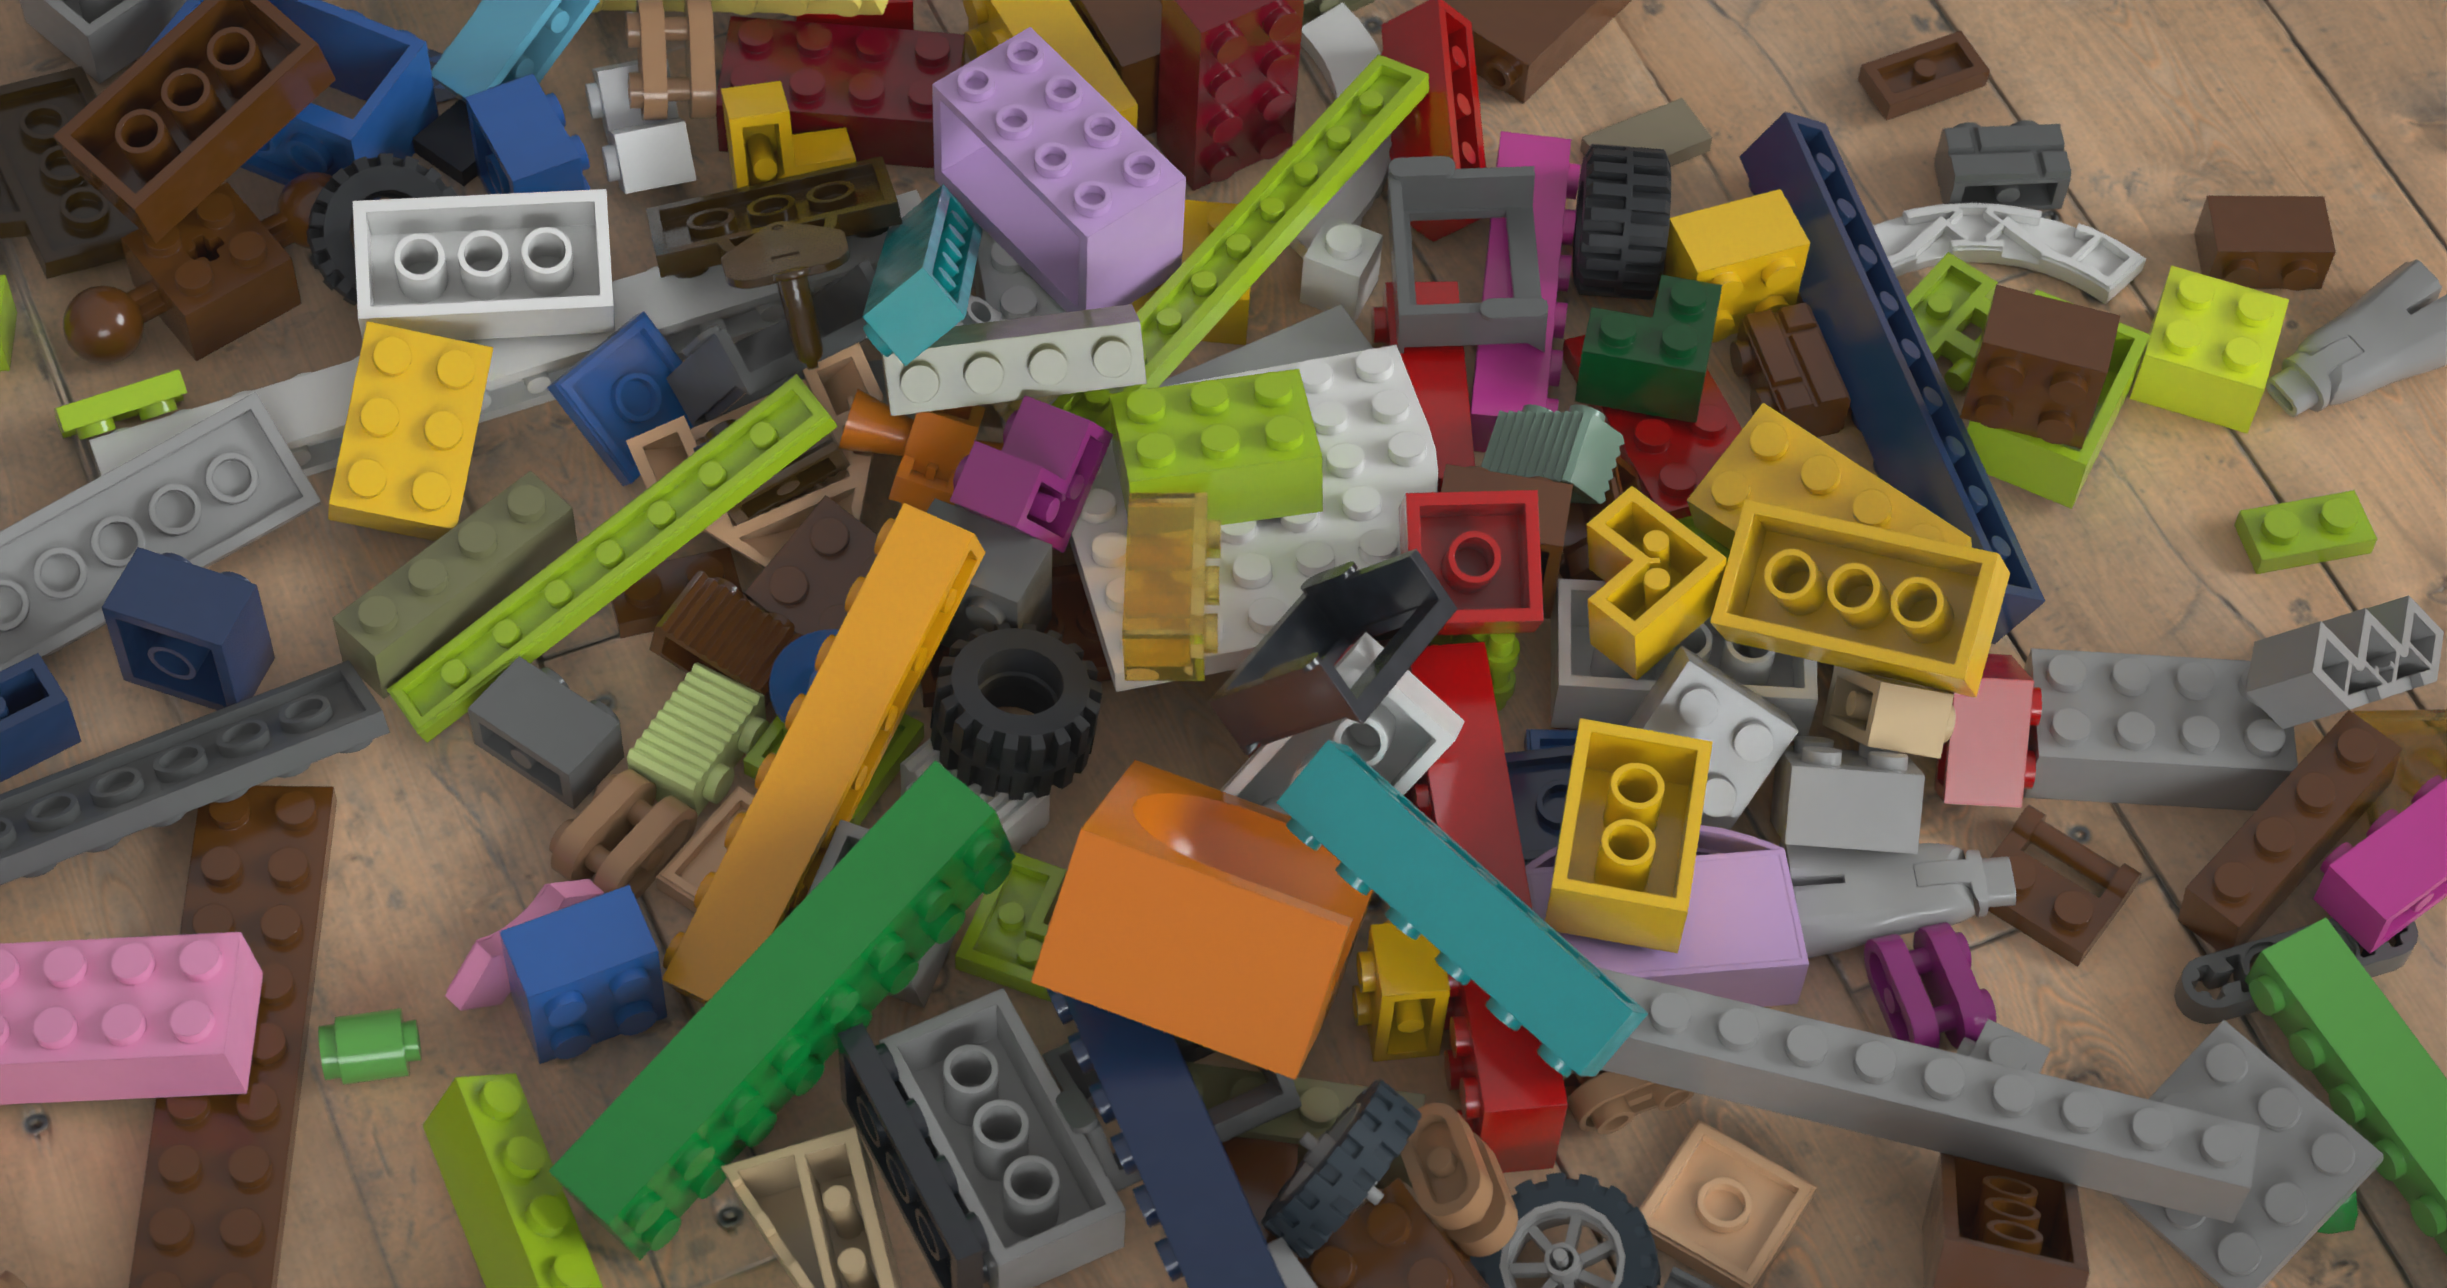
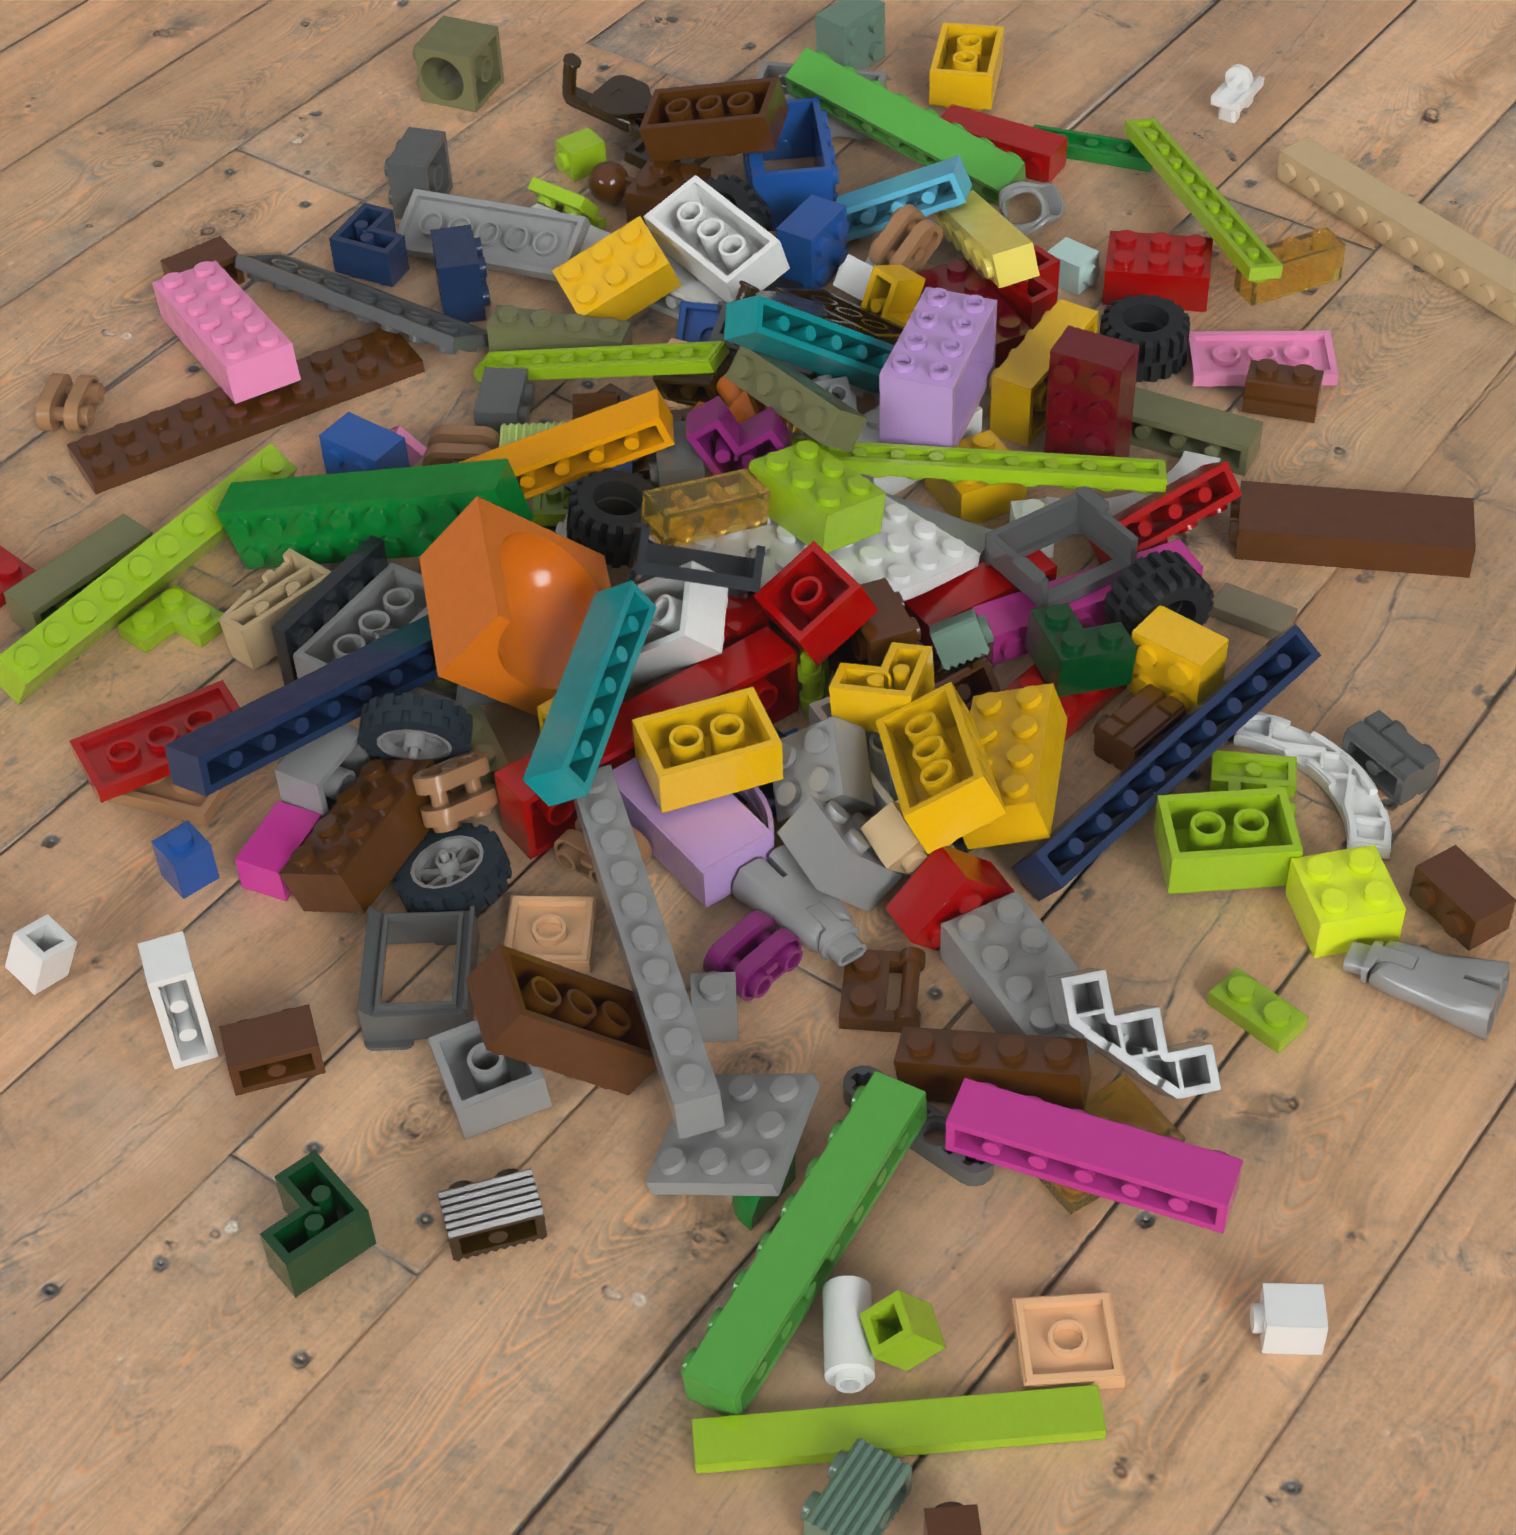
camera: 65 degrees right, 10 degrees down
(369, 1046) = (290, 430): bright green brick -> none
(1923, 75) = (1428, 698): reddish brown plate -> none
(2040, 366) = (1195, 786): reddish brown brick -> none

